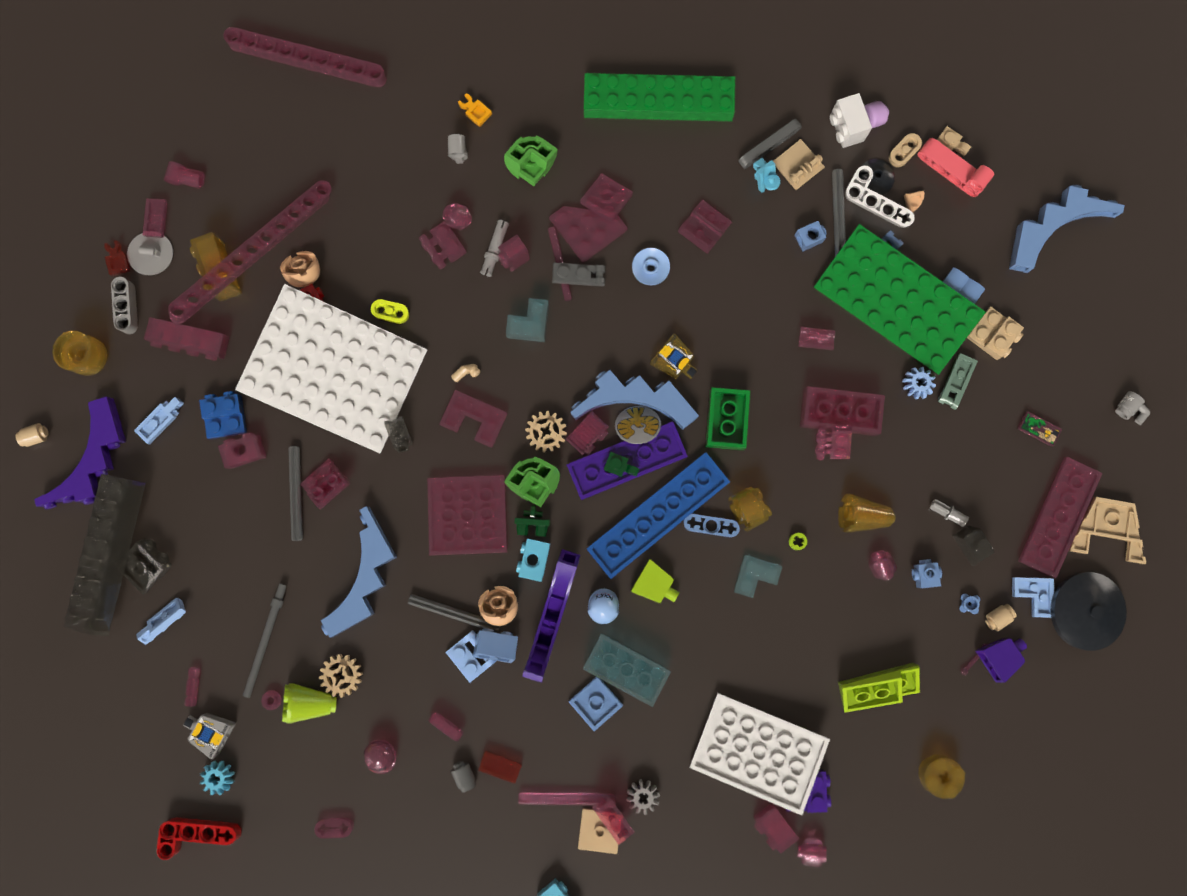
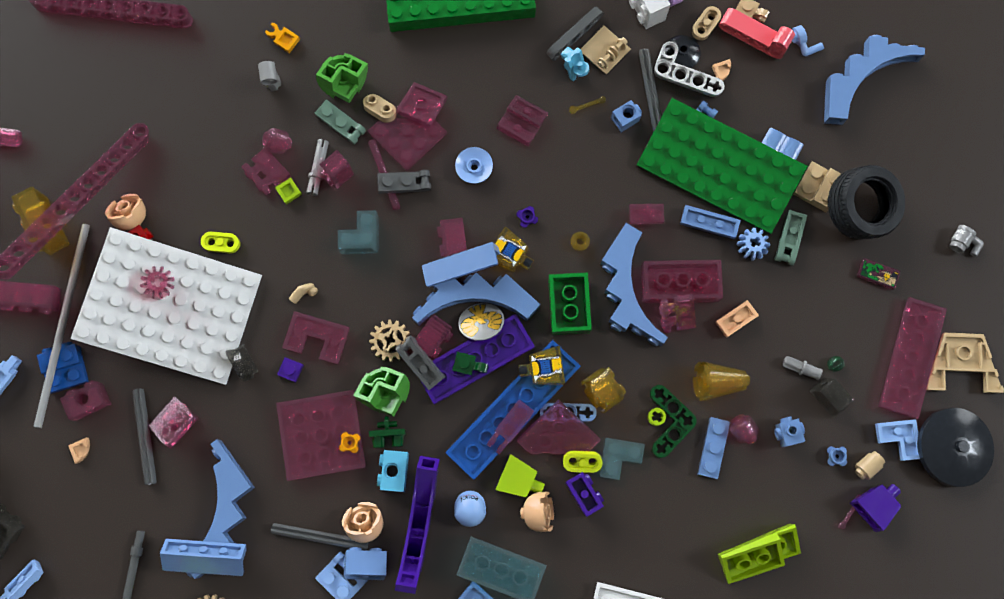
camera: 10 degrees left, 5 degrees down
(226, 375) = (61, 327): none -> light grey piece
(231, 498) = (79, 449): none -> light nougat tile
(319, 341) = (163, 285): none -> clear pink gear
(340, 618) = (203, 557): none -> medium blue panel
(444, 447) = (290, 369): none -> dark purple plate
(463, 268) = (288, 191): none -> lime plate
(489, 527) = (353, 447): none -> light orange plate
(522, 204) = (339, 121): none -> sand green plate
(562, 195) = (376, 106): none -> tan plate
(573, 458) = (420, 362): none -> dark grey plate
(620, 338) = (452, 236): none -> clear pink brick
(625, 365) = (460, 264): none -> medium blue panel
(655, 530) = (511, 424): none -> clear pink hinge
(669, 618) = (538, 512): none -> light nougat cylinder
(695, 479) = (544, 367): none -> torso
(699, 544) = (558, 433): none -> clear pink plate
(700, 320) = (522, 215): none -> dark purple plate
(716, 607) = (584, 494): none -> dark purple brick
(718, 576) = (582, 461): none -> neon yellow plate
(748, 351) = (580, 235): none -> clear yellow plate
(757, 222) = (573, 109): none -> clear yellow hinge
(780, 410) = (628, 313): none -> medium blue arch
(816, 552) = (676, 425): none -> dark green beam
(849, 579) = (713, 448): none -> medium blue plate
(879, 355) = (710, 222): none -> medium blue plate
(891, 455) = (736, 318): none -> light nougat plate
(980, 509) = (834, 359): none -> clear green hinge
(999, 179) = (801, 38): none -> light blue plate
(1062, 363) = (889, 196): none -> black tyre

